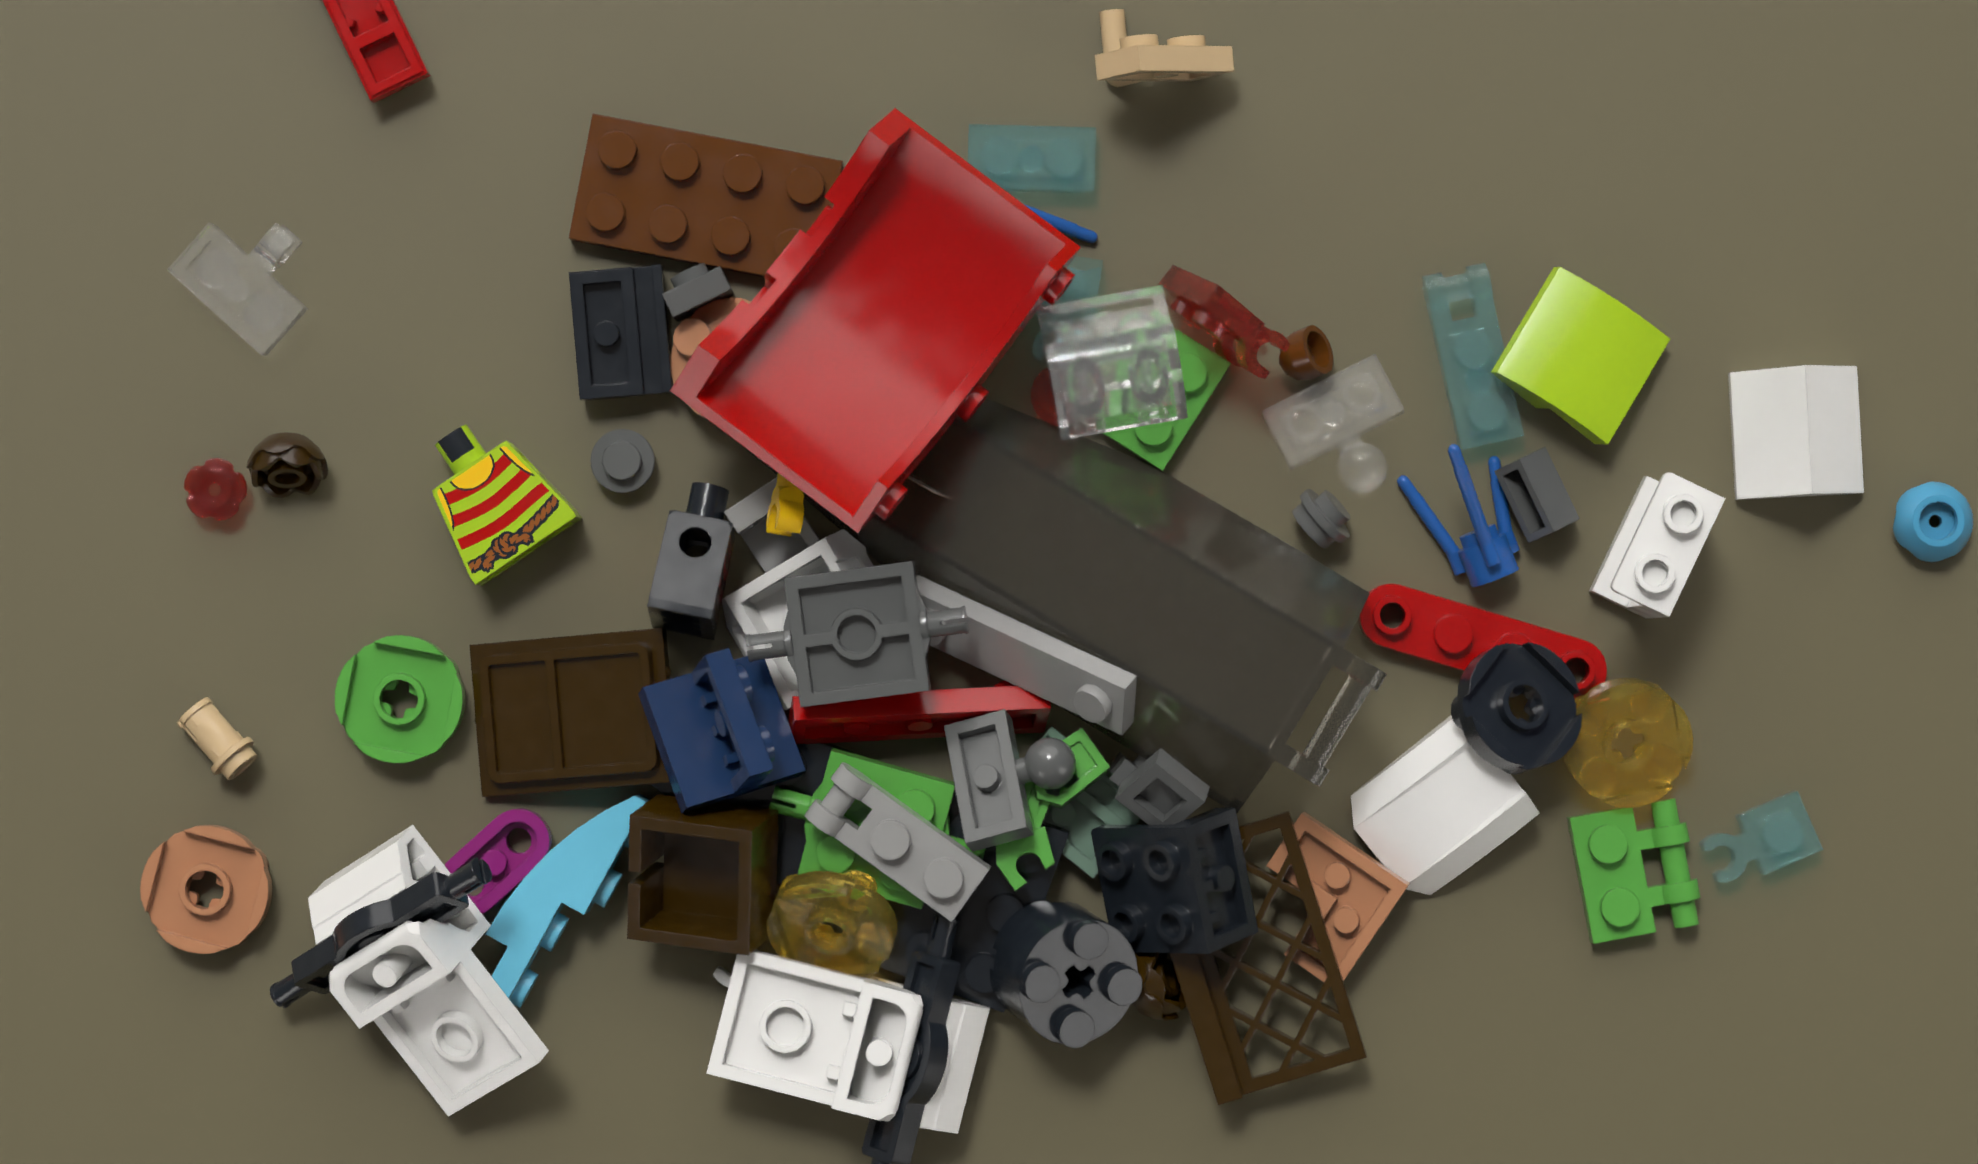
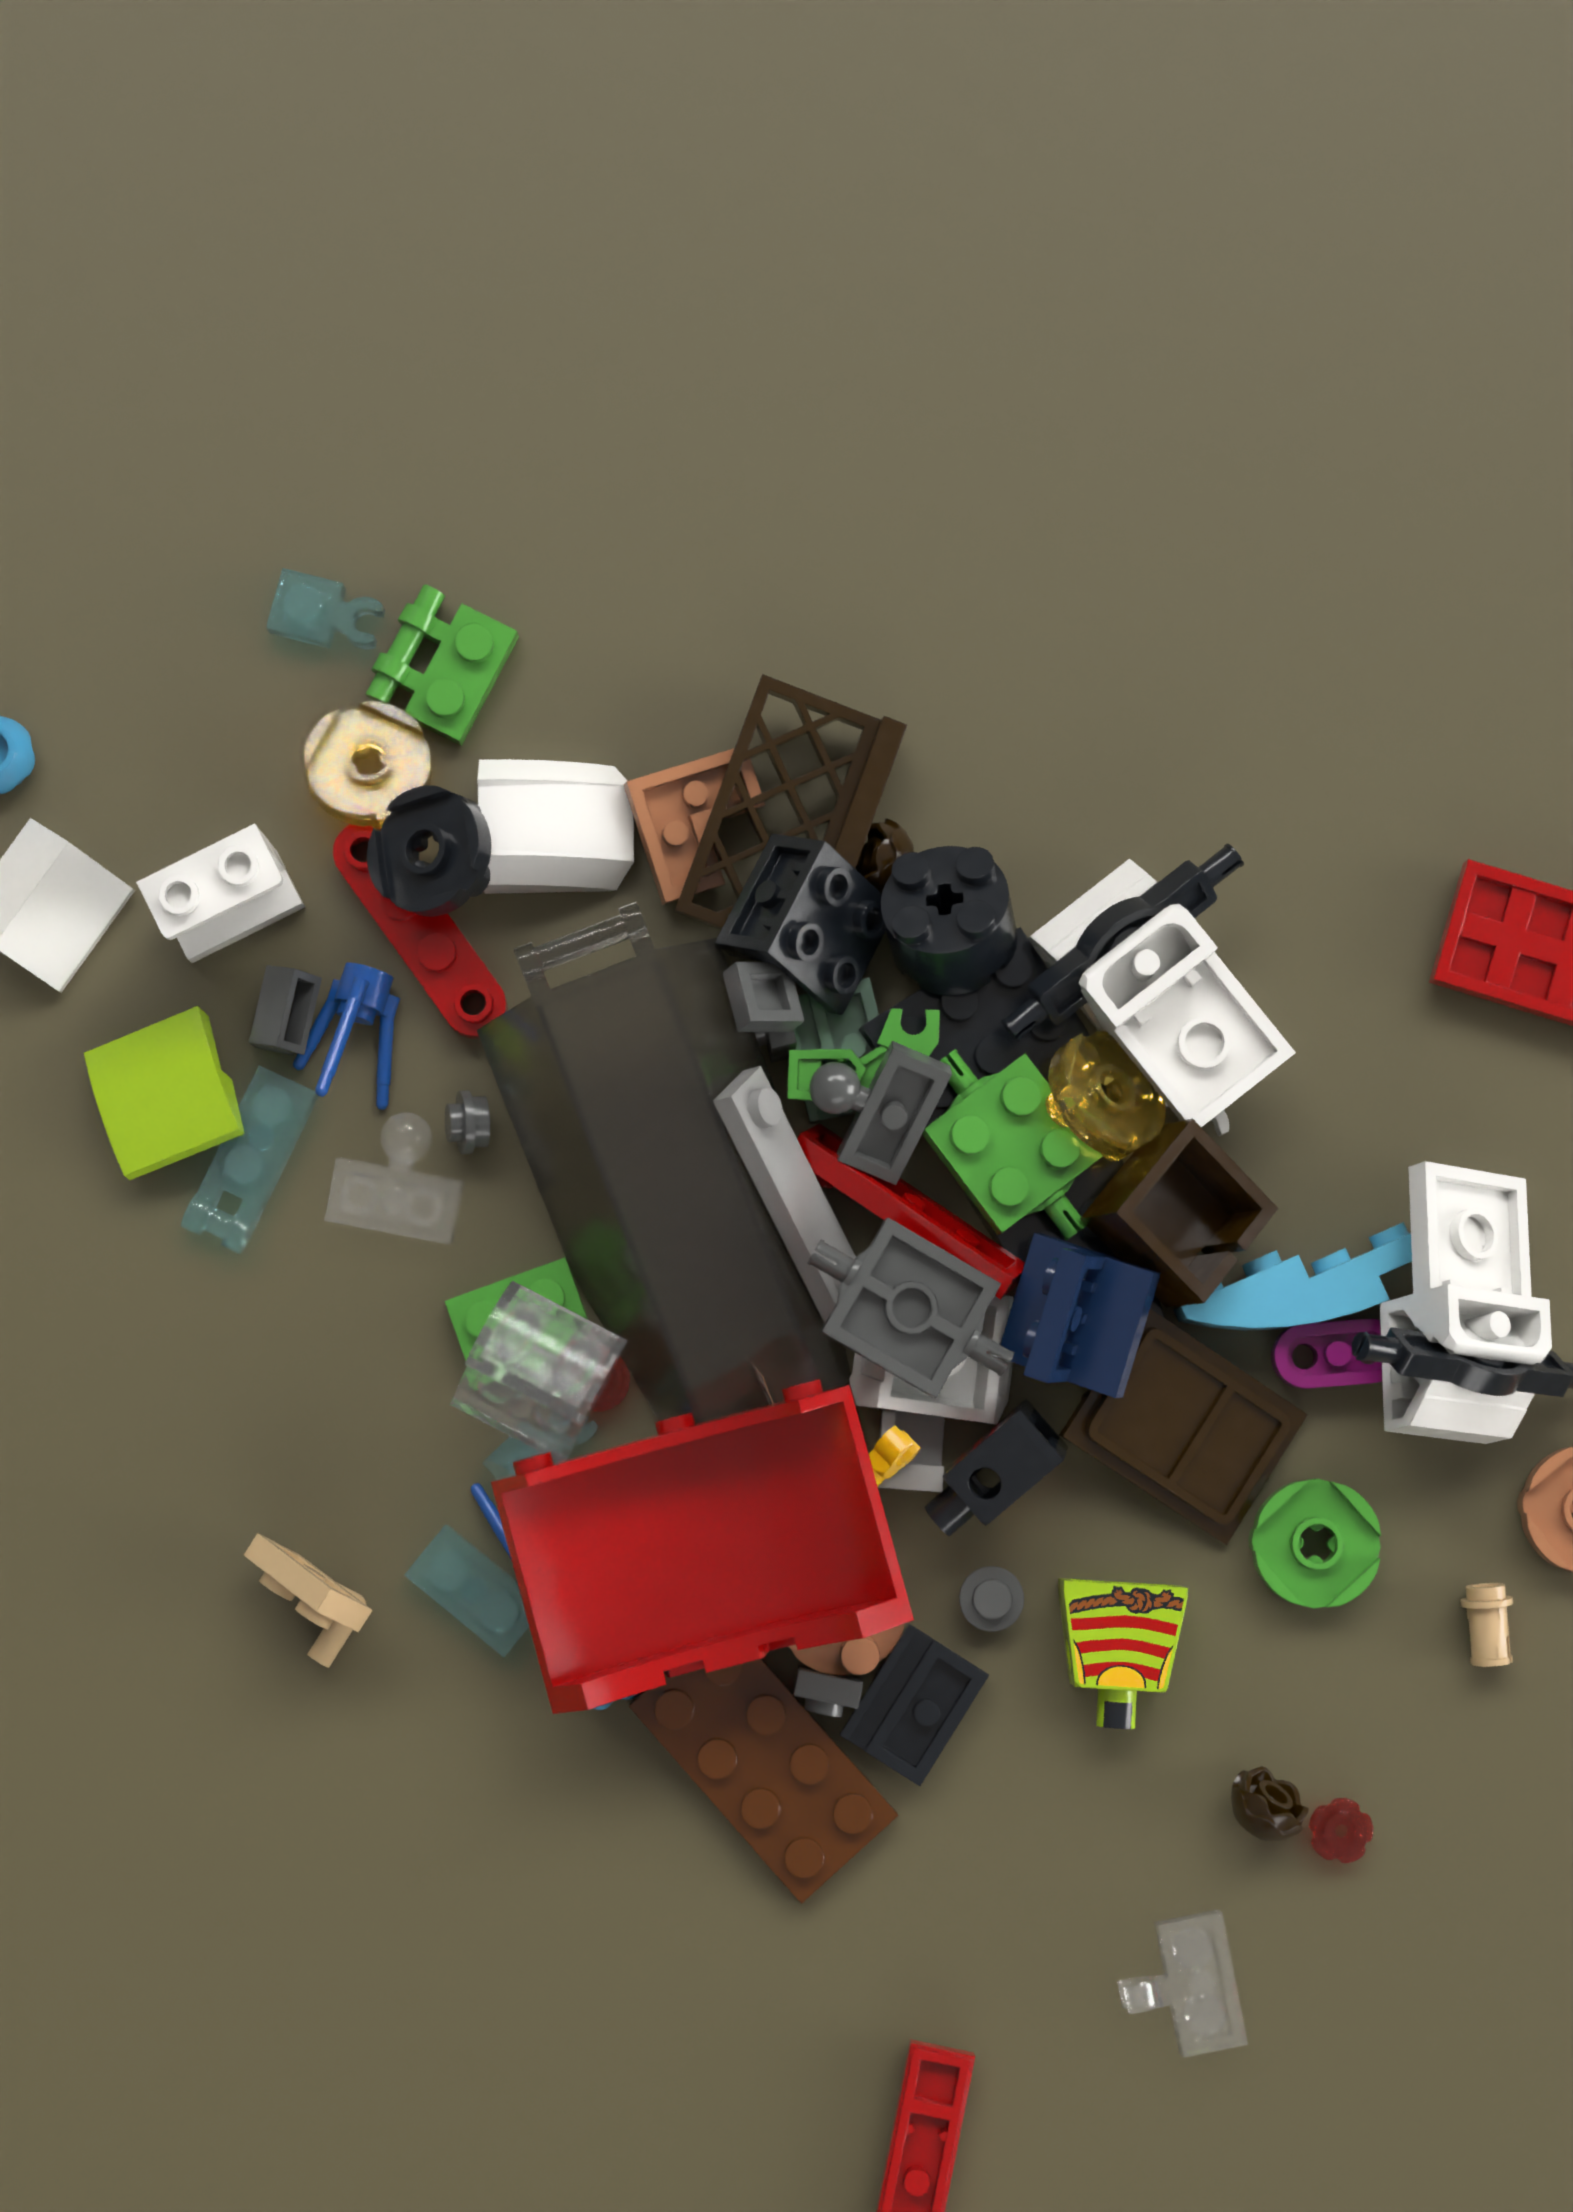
camera: 145 degrees left, 5 degrees down
(899, 842) = (1003, 1116): light grey plate -> none
(1223, 317) = (422, 1340): clear red plate -> none
(1308, 354) = (379, 1262): reddish brown hinge -> none

